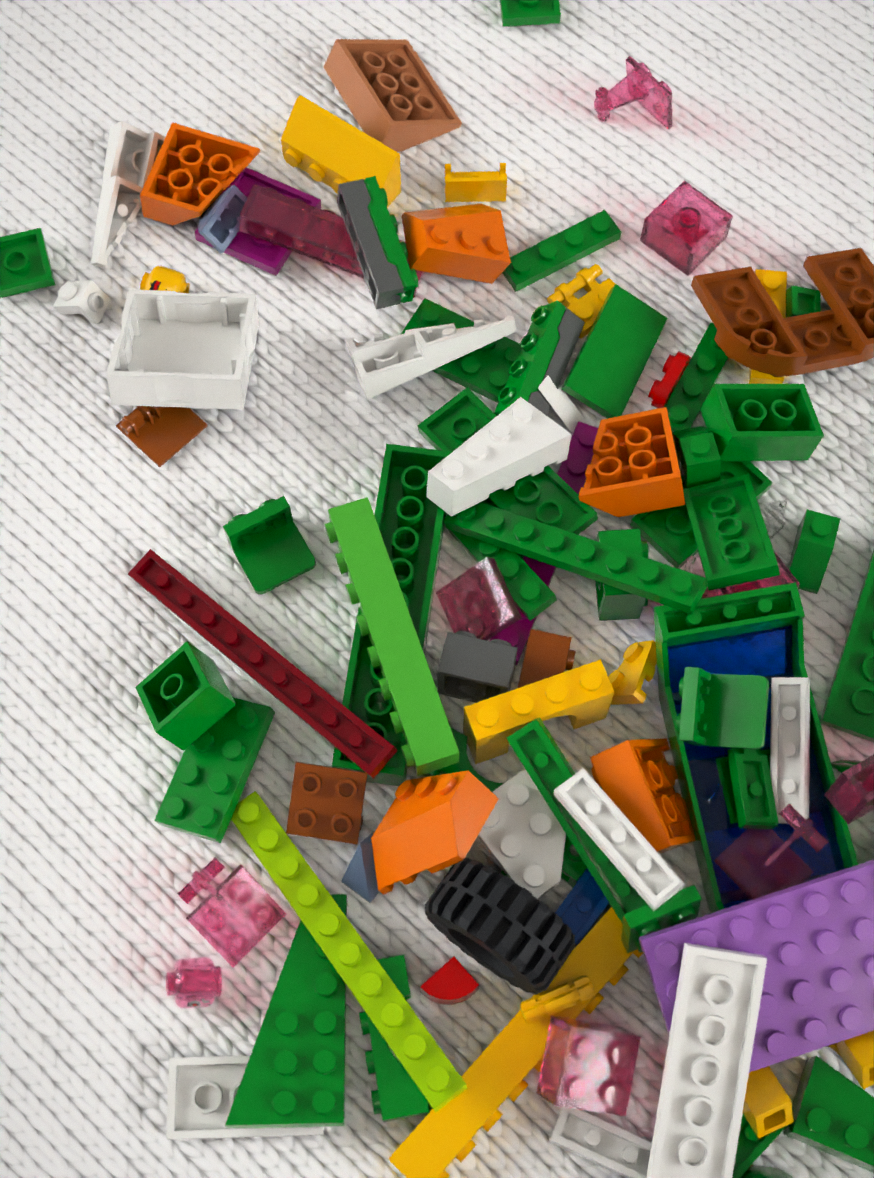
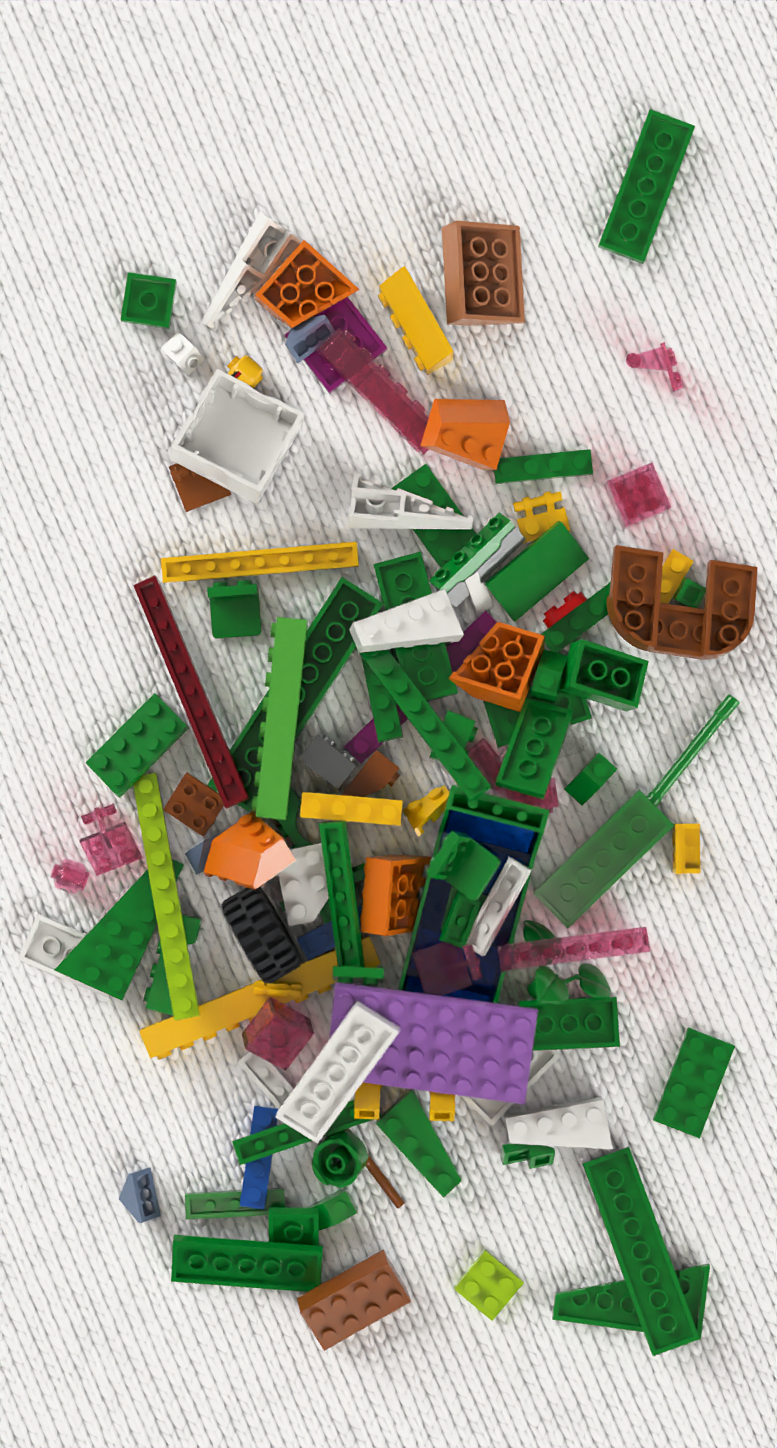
camera: 25 degrees right, 20 degrees up
(185, 696) = (135, 695): green brick -> none
(275, 481) = (259, 562): none -> yellow plate
(376, 242) = (404, 416): dark grey piece -> none
(450, 984) = (221, 948): red brick -> none
(475, 186) = (507, 382): yellow hinge -> none
(479, 601) = (351, 715): clear pink plate -> none
(619, 839) = (352, 920): white tile -> none

